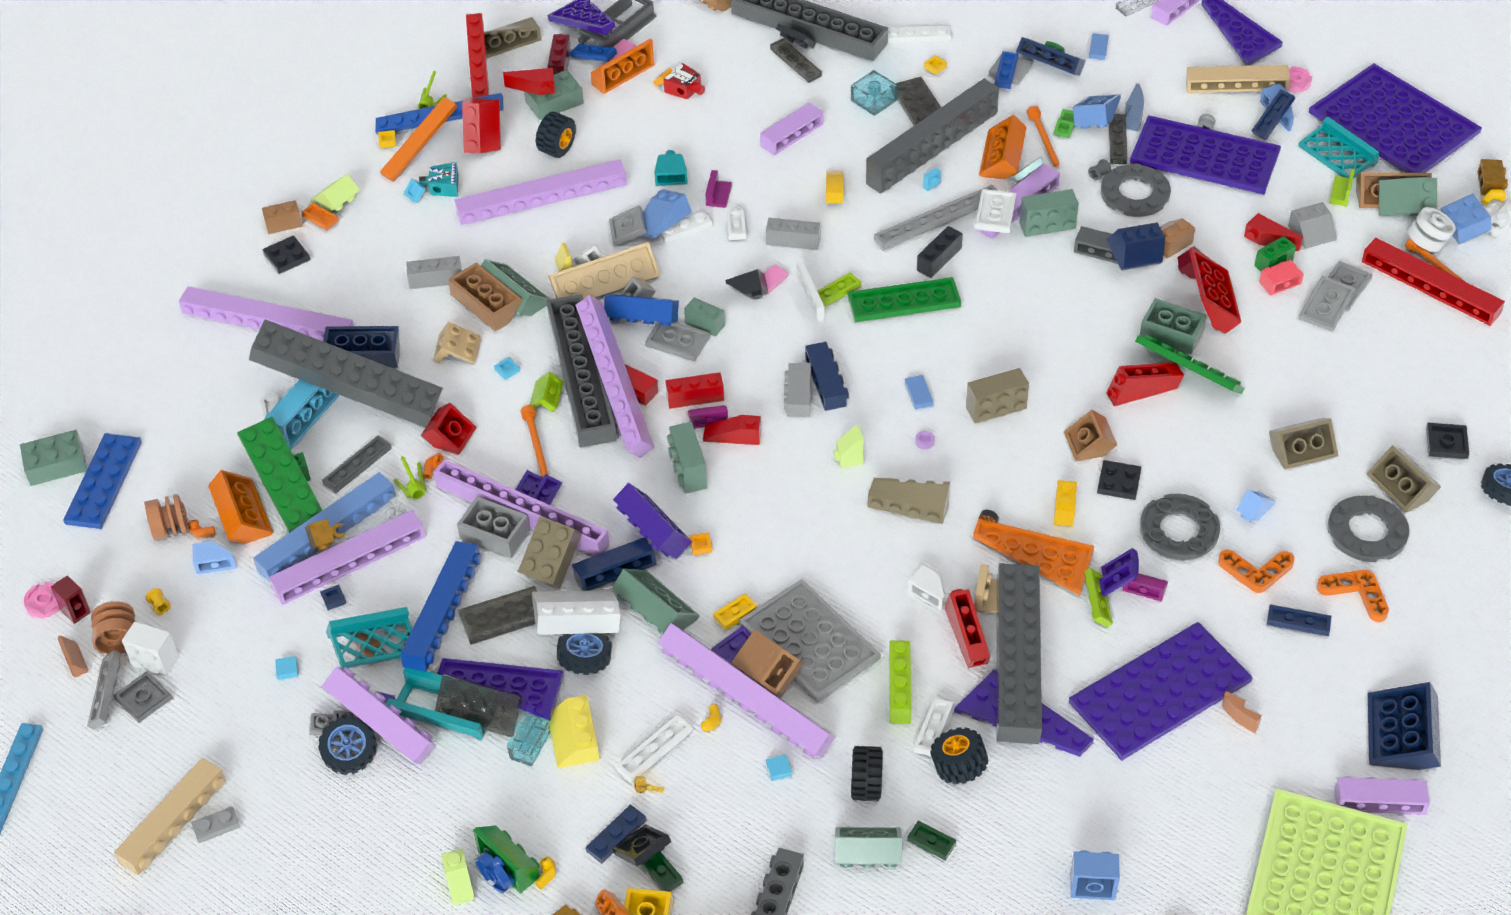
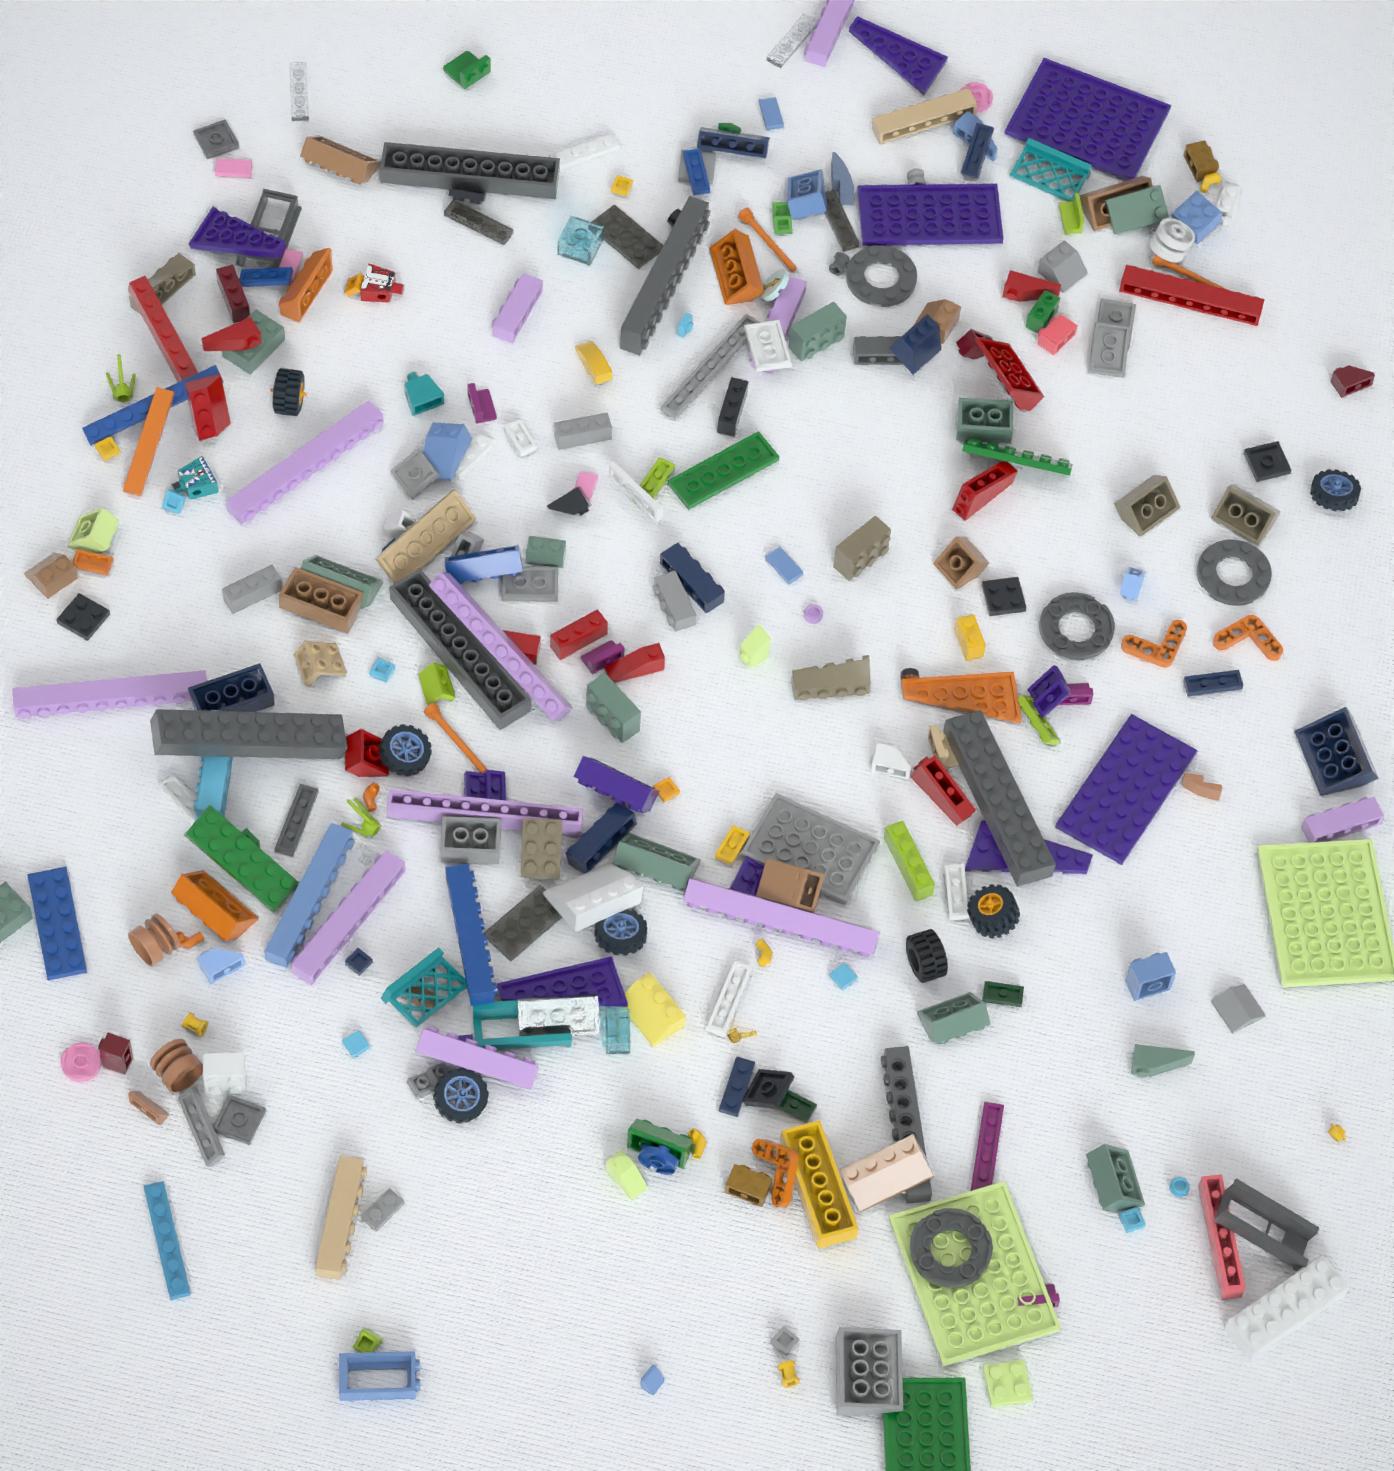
camera: 30 degrees left, 10 degrees up
(322, 535) = (319, 905): pearl gold brick -> none
(484, 448) = (397, 764): none -> black wheel
(563, 258) = (374, 533): light yellow slope -> none

